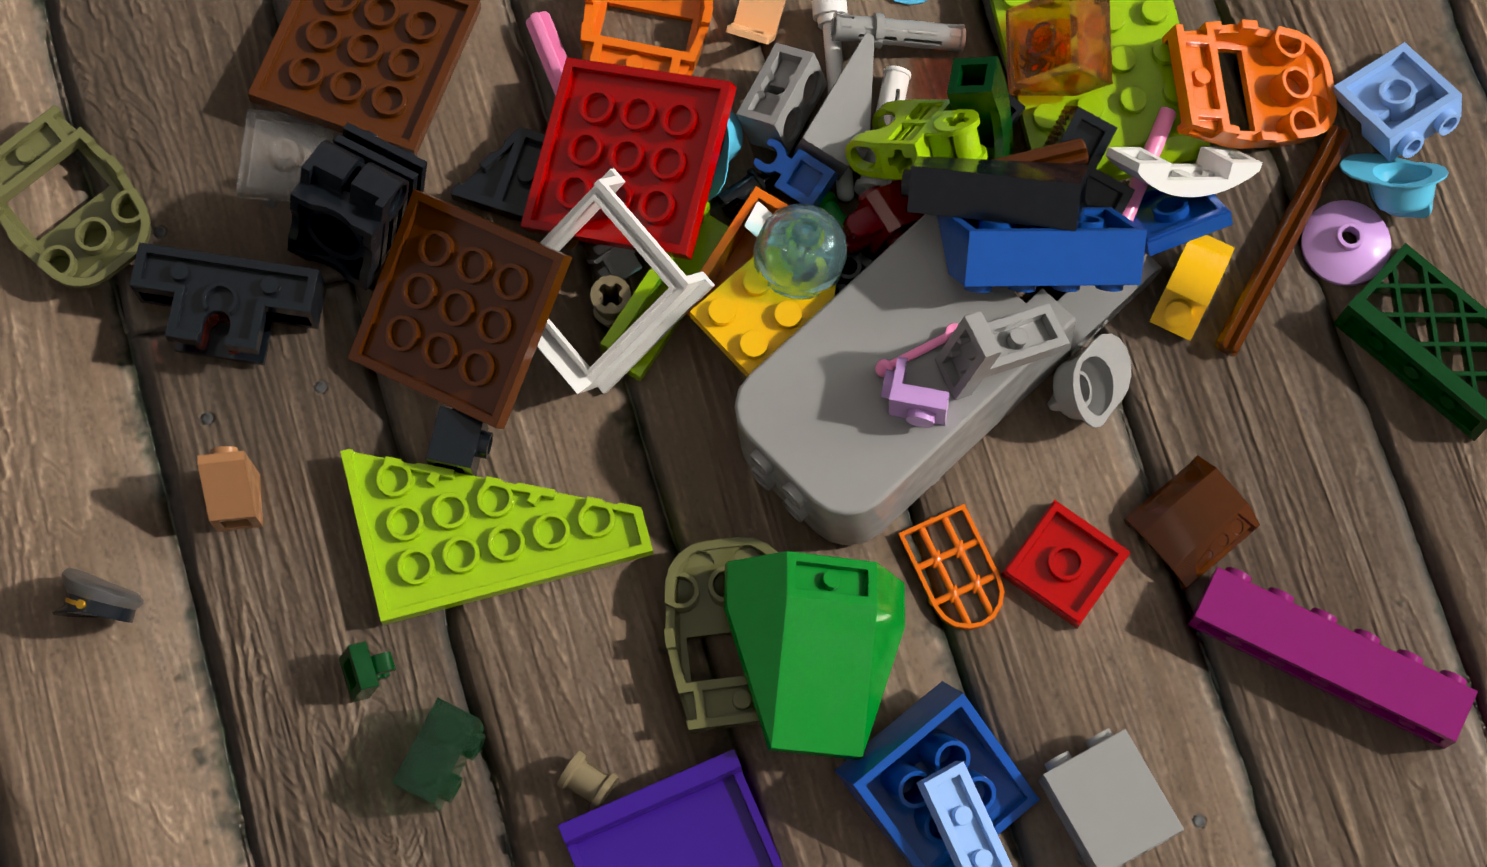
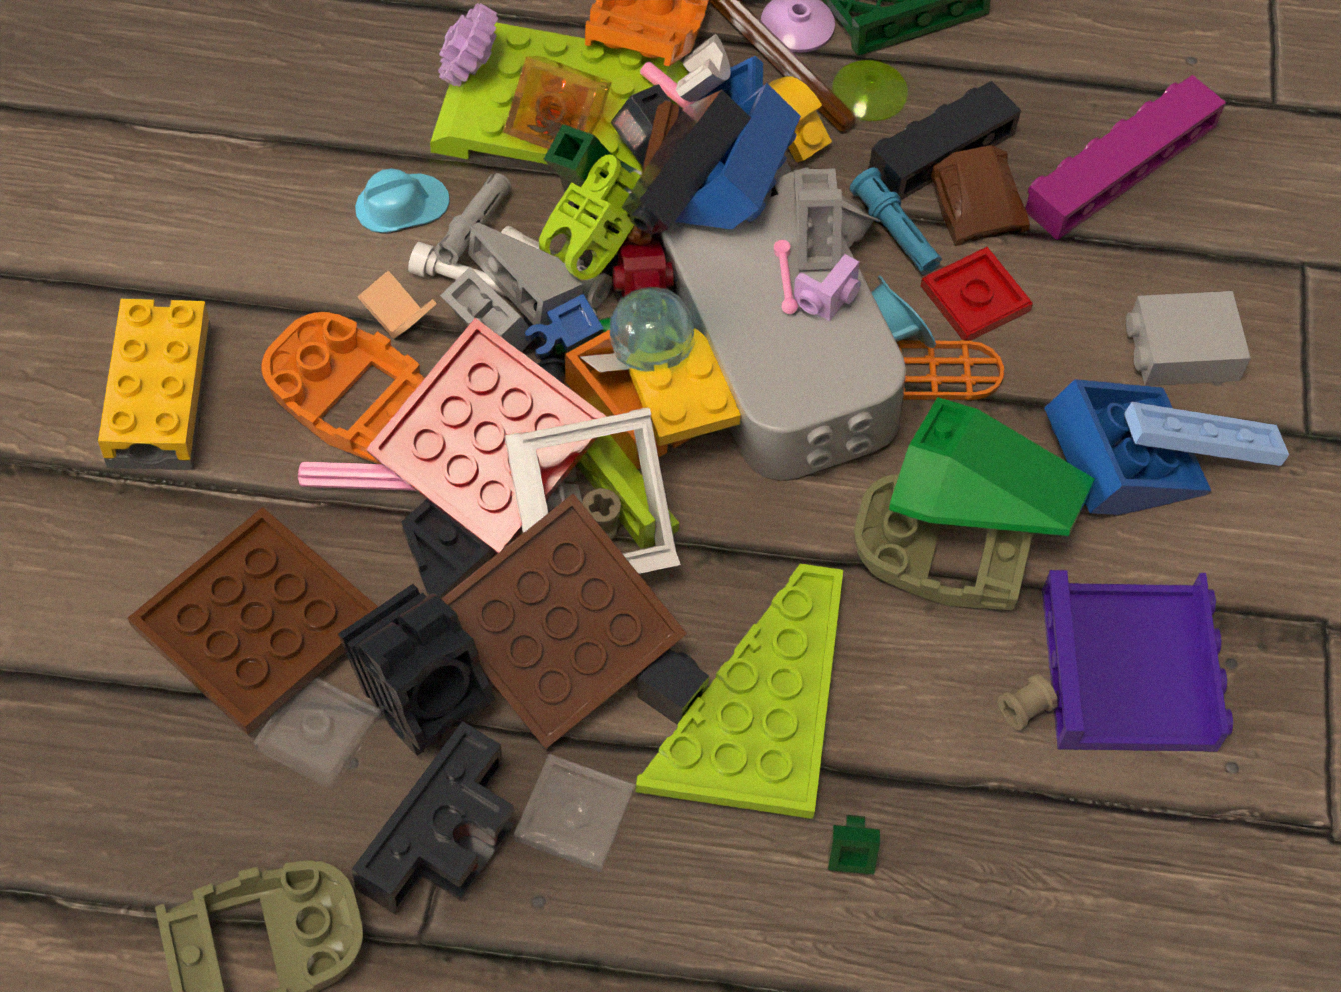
camera: 70 degrees left, 15 degrees down
(230, 489) = (633, 888): medium nougat slope -> none
(295, 410) = (574, 813): none -> clear plate
(440, 754) = (960, 809): clear green brick -> none
(978, 484) = (900, 316): none -> medium azure piece
(1127, 423) = (887, 207): none -> dark azure pin
(1250, 455) = (974, 121): none -> black brick
(1278, 369) = (871, 89): none -> clear neon green dish

